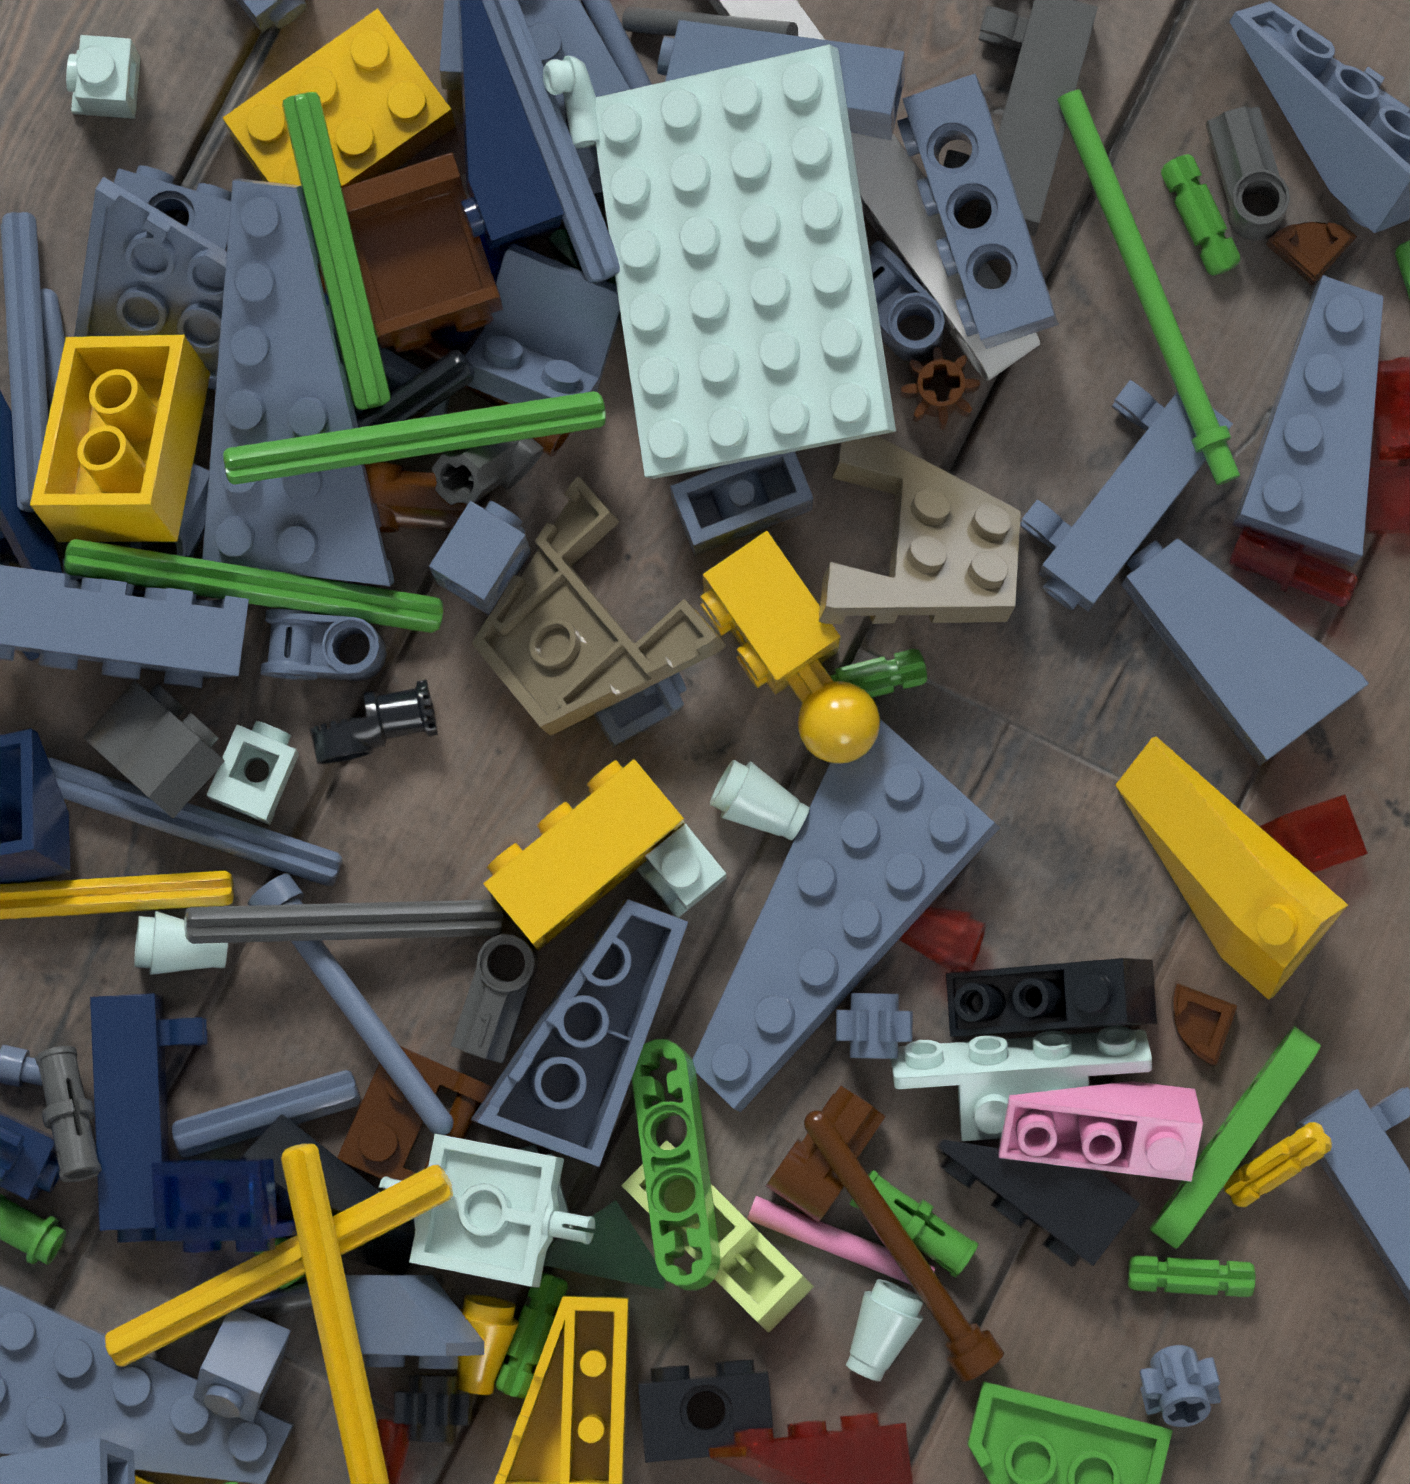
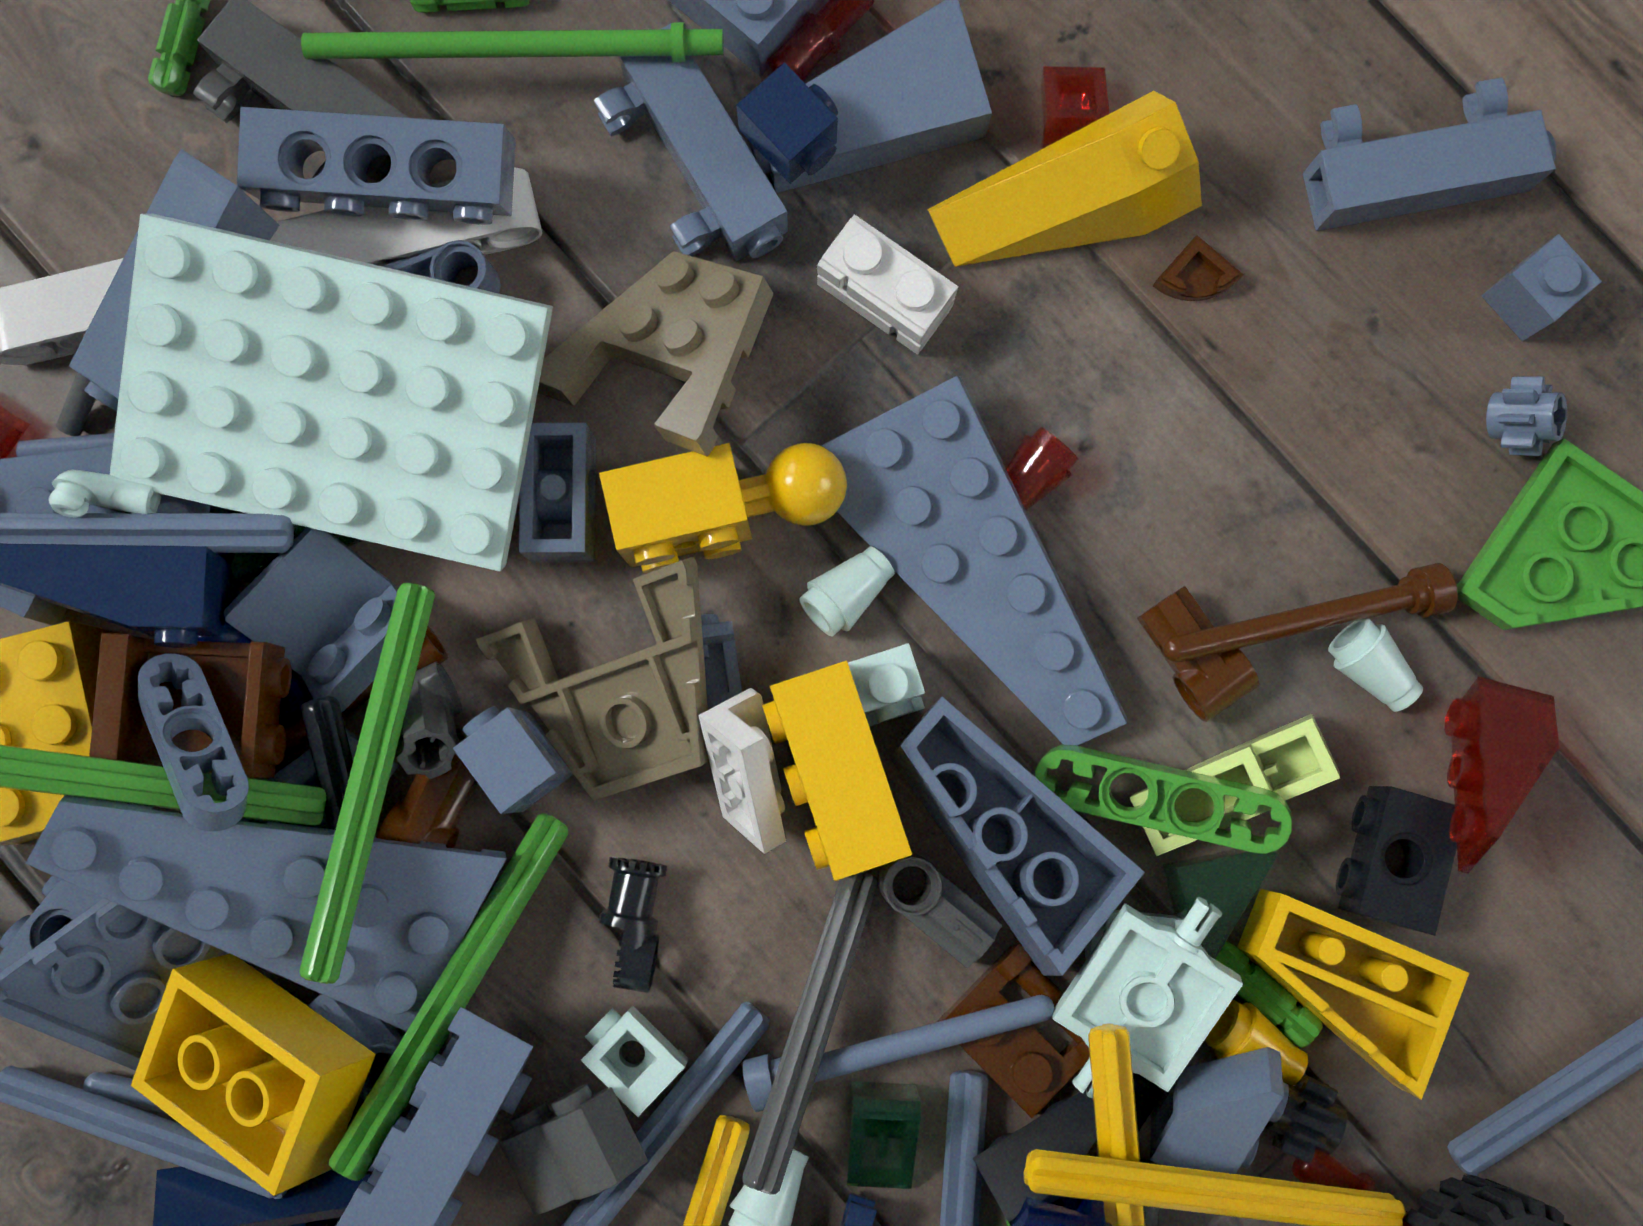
camera: 75 degrees left, 0 degrees up
(268, 1026) = (883, 1134): none -> clear green slope
(308, 646) = (532, 954): sand blue piece -> none
(363, 276) = (187, 768): none -> sand blue beam
(554, 769) = (745, 768): none -> white bracket
(825, 1237) = (1272, 683): bright pink bar -> none
(874, 1025) = (1097, 563): sand blue gear -> none
(879, 675) = (774, 434): bright green axle -> none
(928, 1231) = (1300, 589): bright green pin -> none
(952, 377) = (523, 261): reddish brown gear -> none
(997, 1067) = (1194, 451): light aqua bracket -> none
(1052, 997) = (1130, 395): black slope -> none
(1064, 725) = (886, 284): none -> white brick
(1070, 1204) = (1311, 457): black slope -> none
(1107, 1128) = (1278, 381): bright pink slope -> none
(1170, 576) = (790, 123): none -> dark blue brick
(1191, 1276) = (1424, 370): bright green axle -> none
(1235, 1136) = (1316, 282): bright green beam -> none
(1278, 1164) = (1360, 249): yellow axle -> none
(1313, 1355) = (1541, 288): none -> sand blue brick

